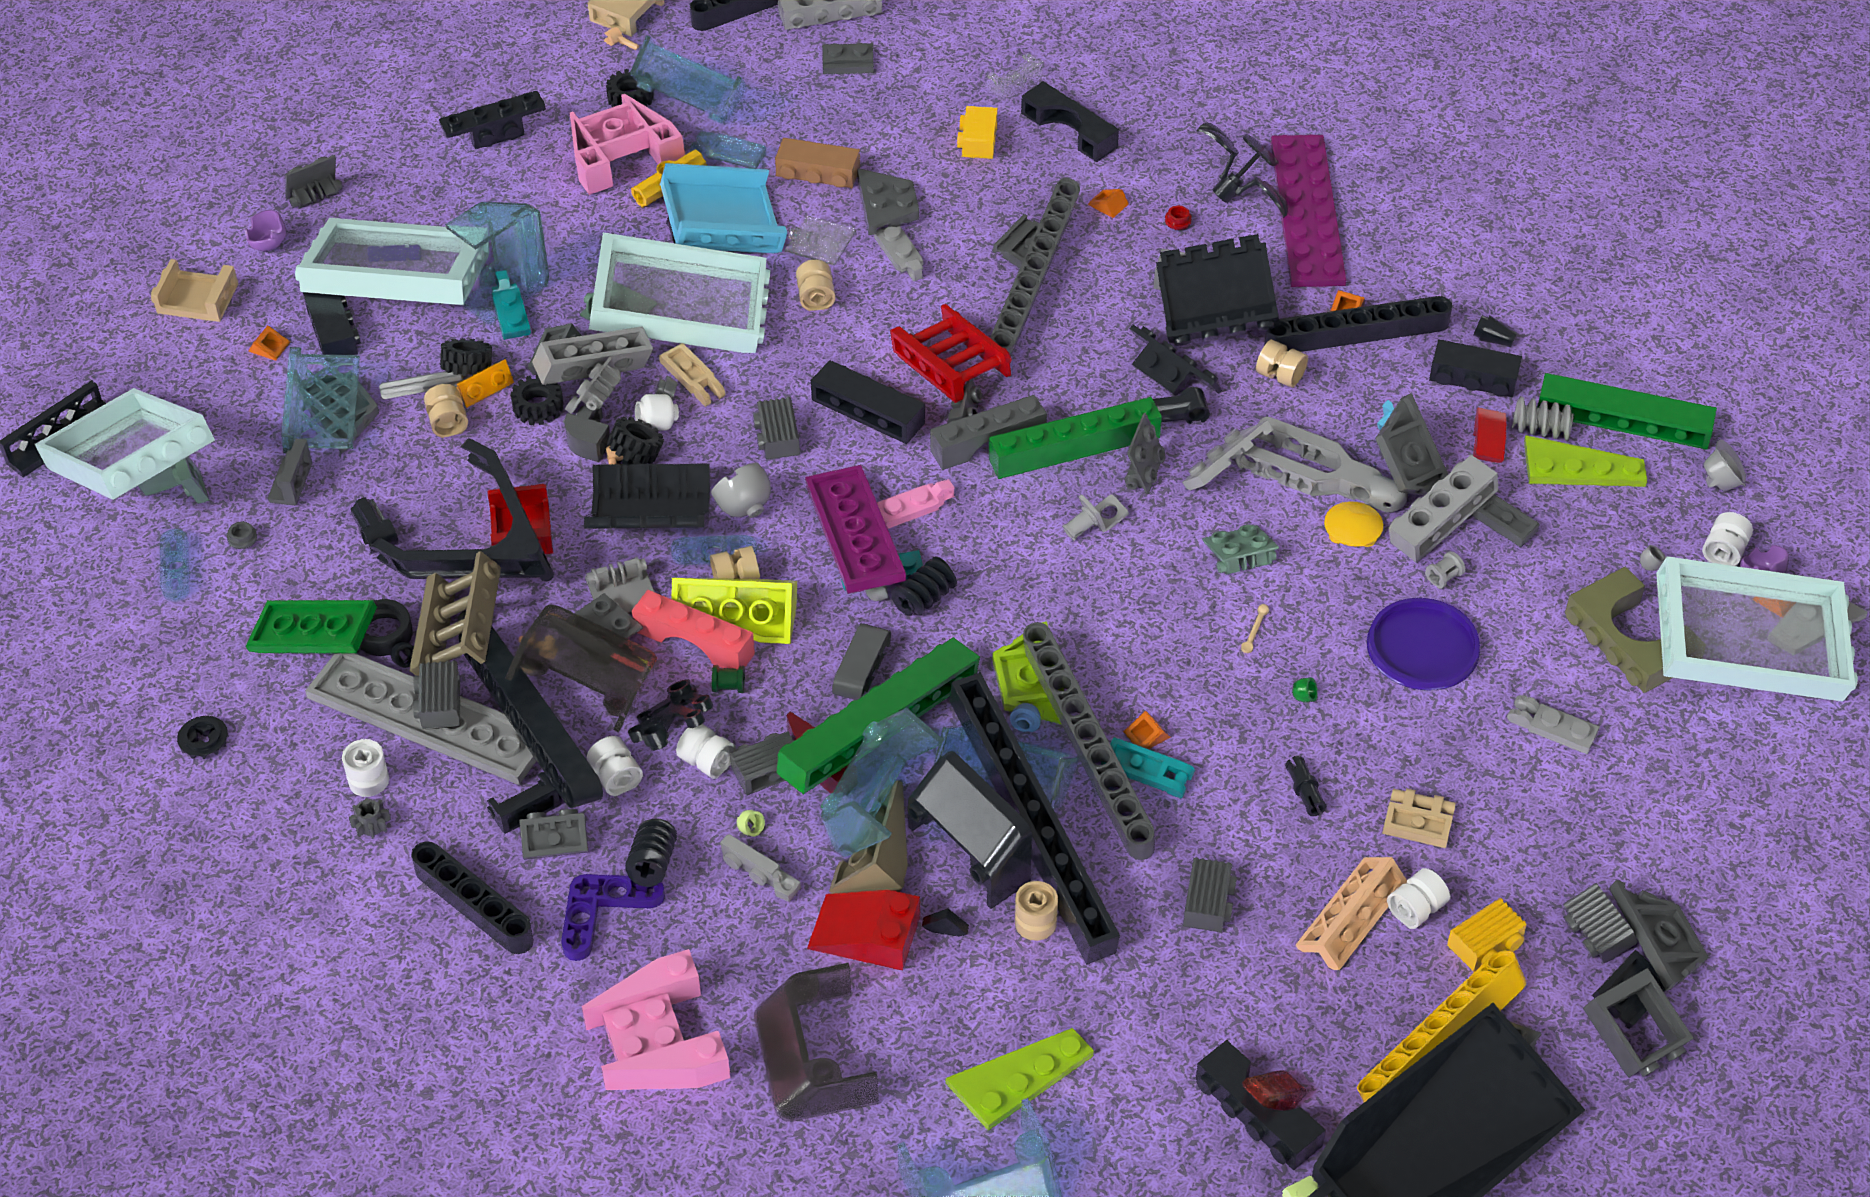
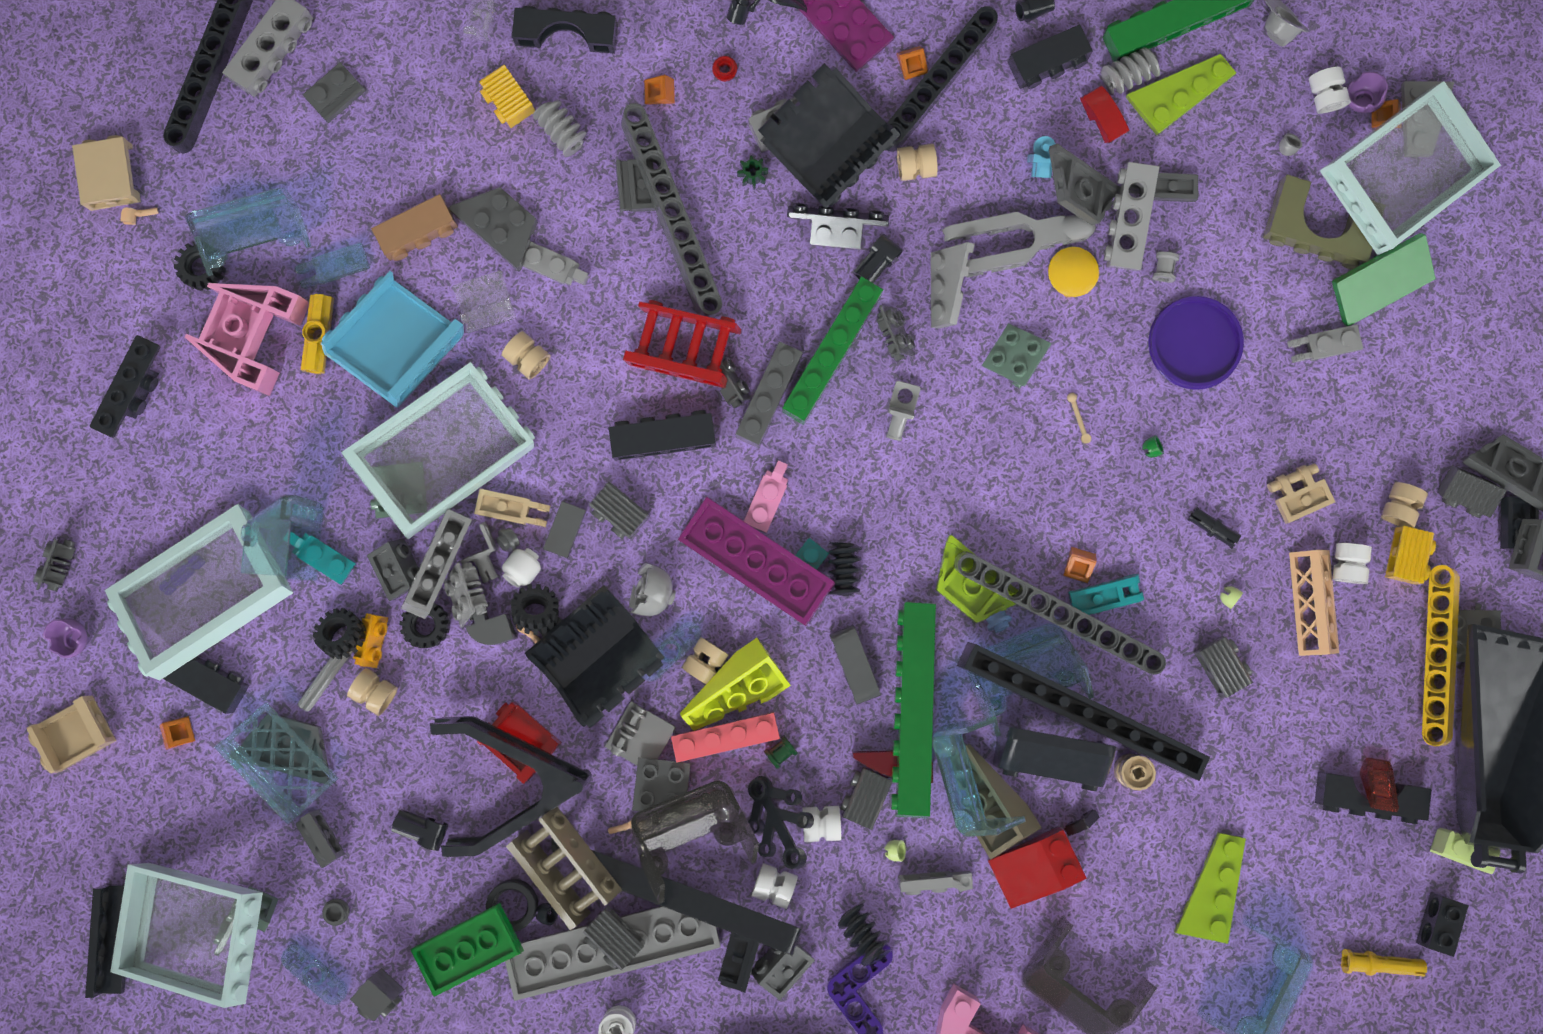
camera: 40 degrees left, 35 degrees up
(207, 598) = (377, 996): none -> dark grey brick
(633, 384) = (482, 558): none -> light grey bracket
(719, 416) = (564, 529): none -> dark grey tile
(1001, 171) = (560, 127): none -> light grey piece
(1131, 289) = (752, 180): none -> dark green gear
(1276, 847) = (1231, 599): none -> yellowish green hinge
(1519, 887) = (1404, 504): none -> tan wheel
(1656, 704) = (1384, 279): none -> tile

